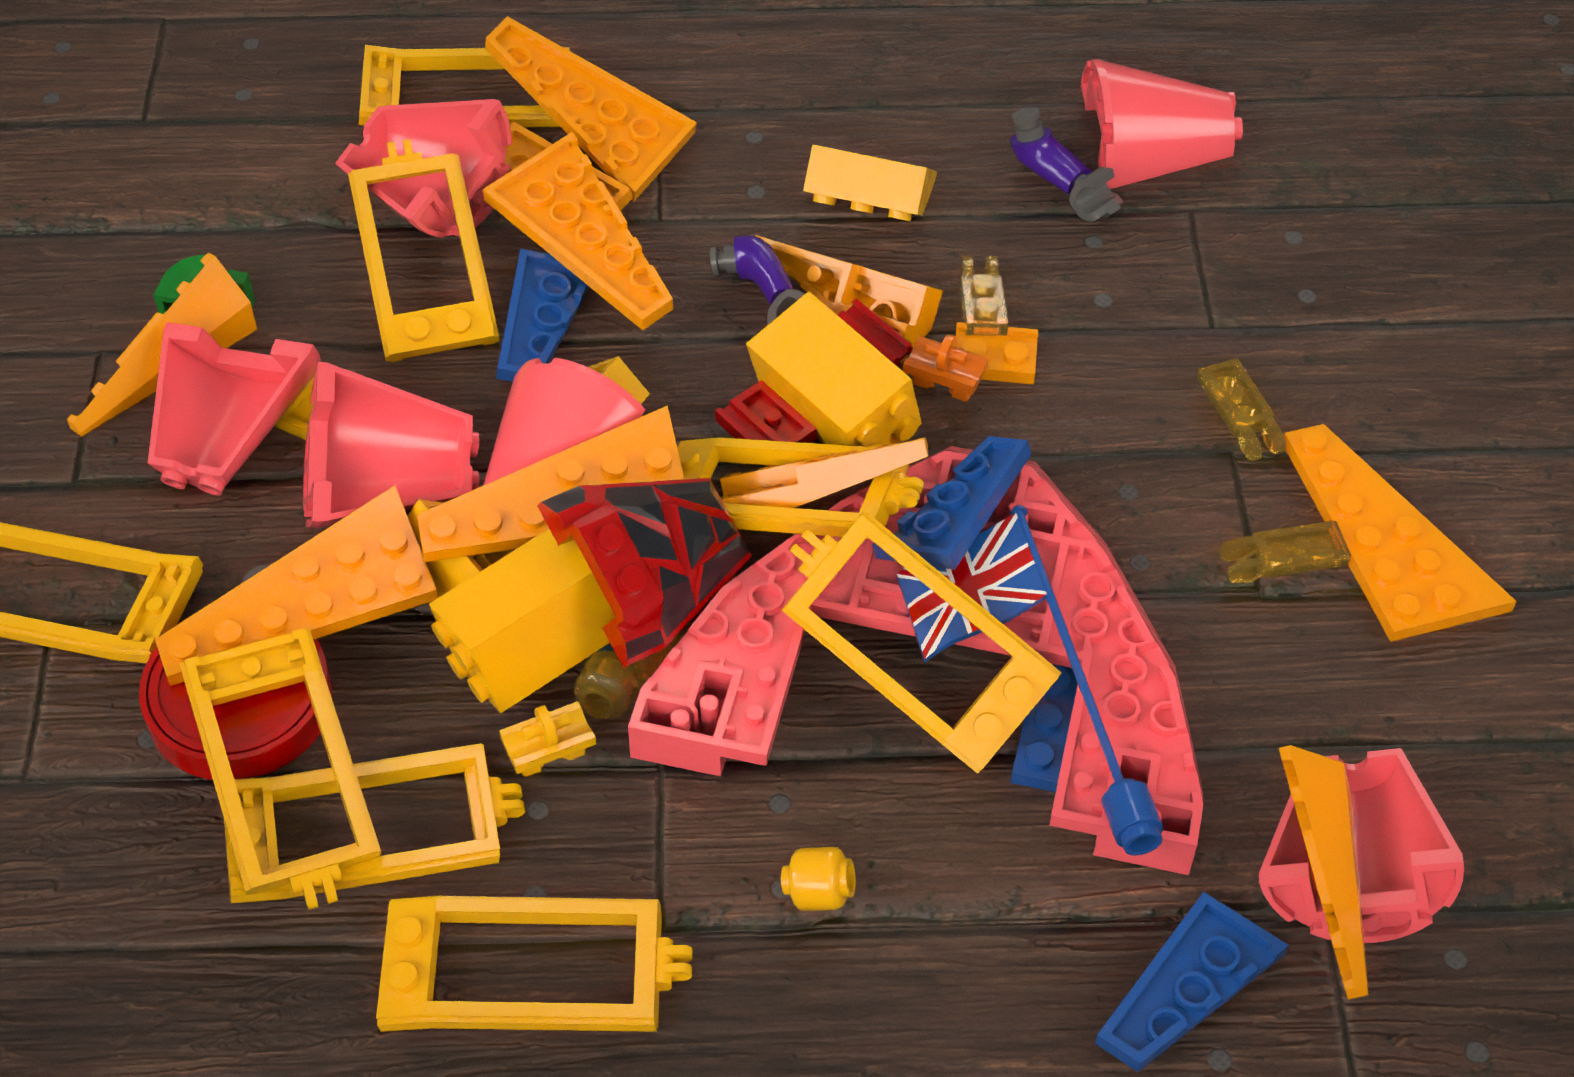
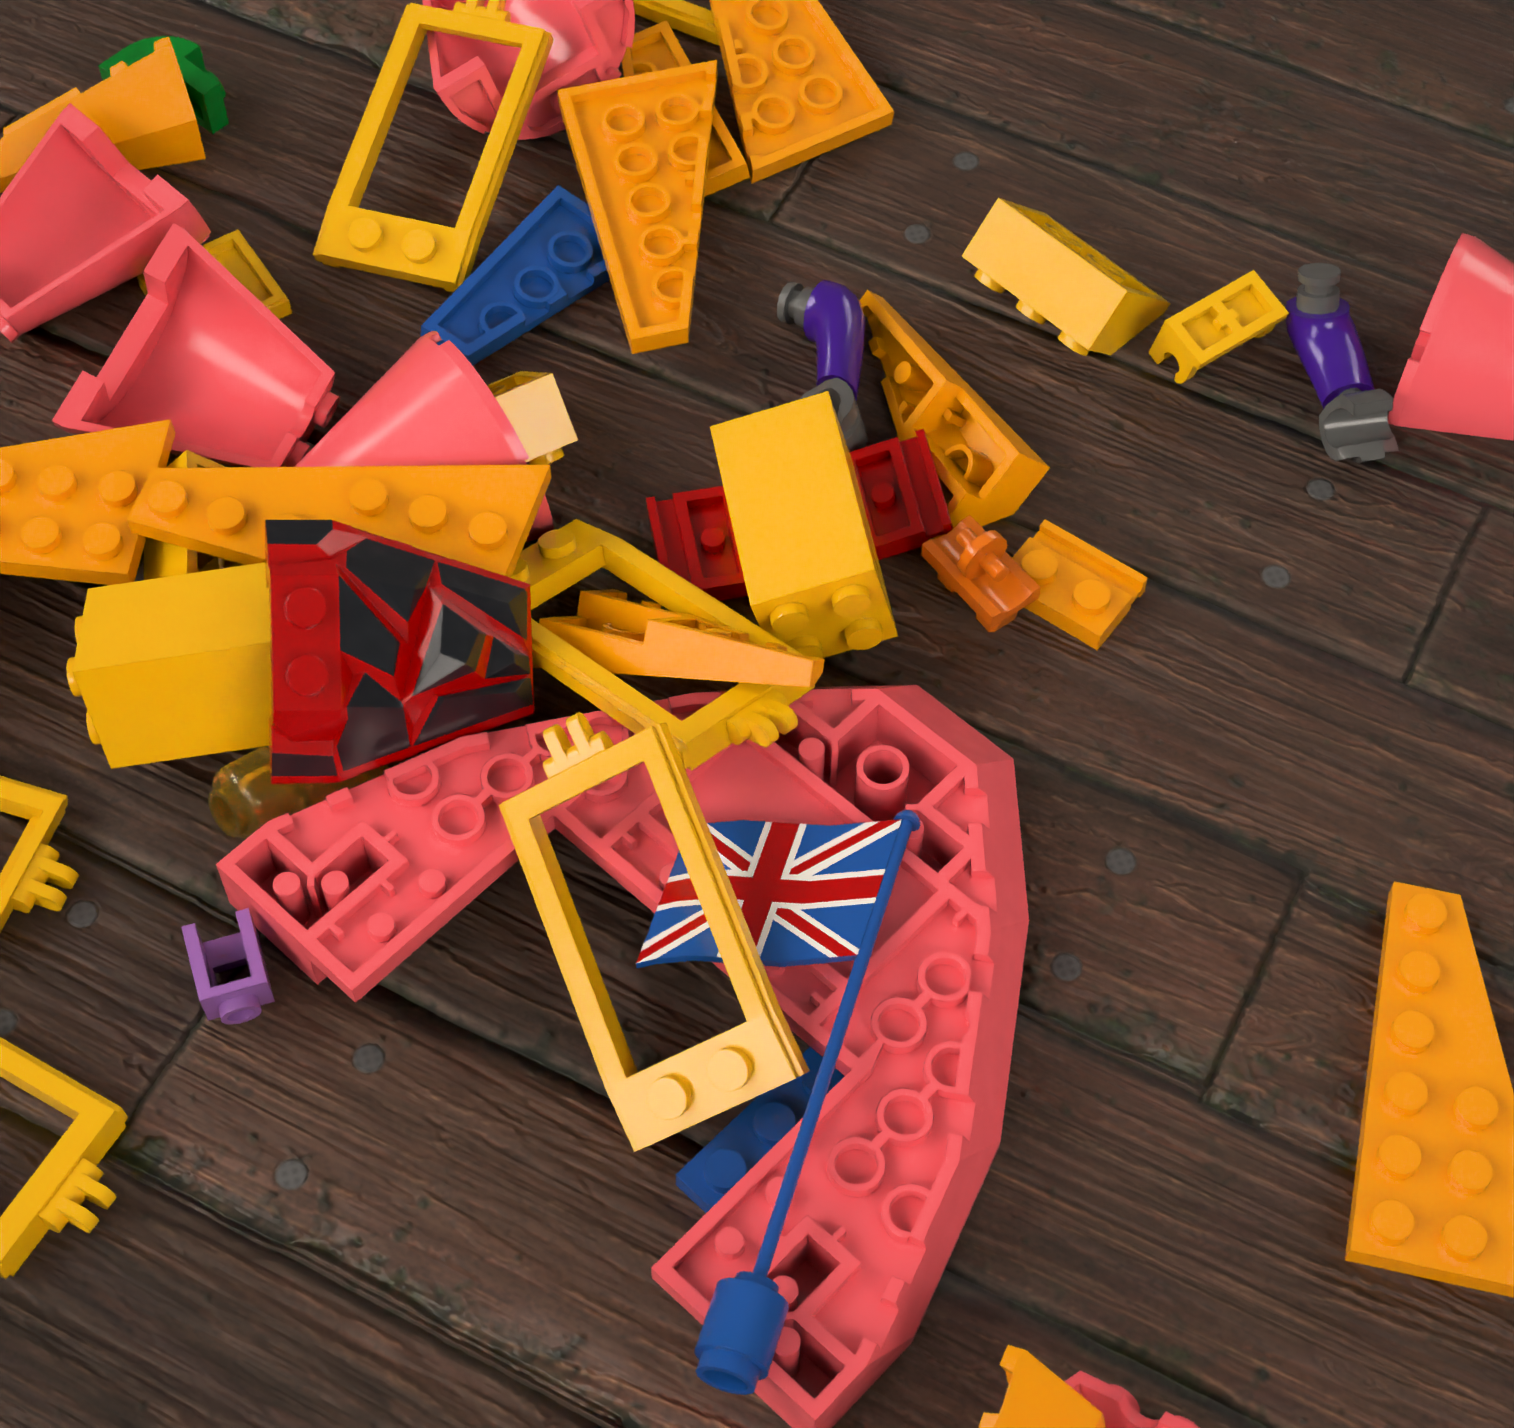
camera: 30 degrees right, 5 degrees up
(547, 738) = (138, 828): yellow hips -> none
(671, 774) = (236, 1000): none -> medium lavender window
(818, 878) = (325, 1188): yellow head -> none
(961, 507) = (792, 792): blue wing -> none
(981, 171) = (1218, 325): none -> yellow hinge
(983, 299) = (1100, 503): clear yellow hinge -> none
(1242, 407) = (1358, 813): clear yellow hinge -> none
(1285, 551) = (1276, 1054): clear yellow hinge -> none

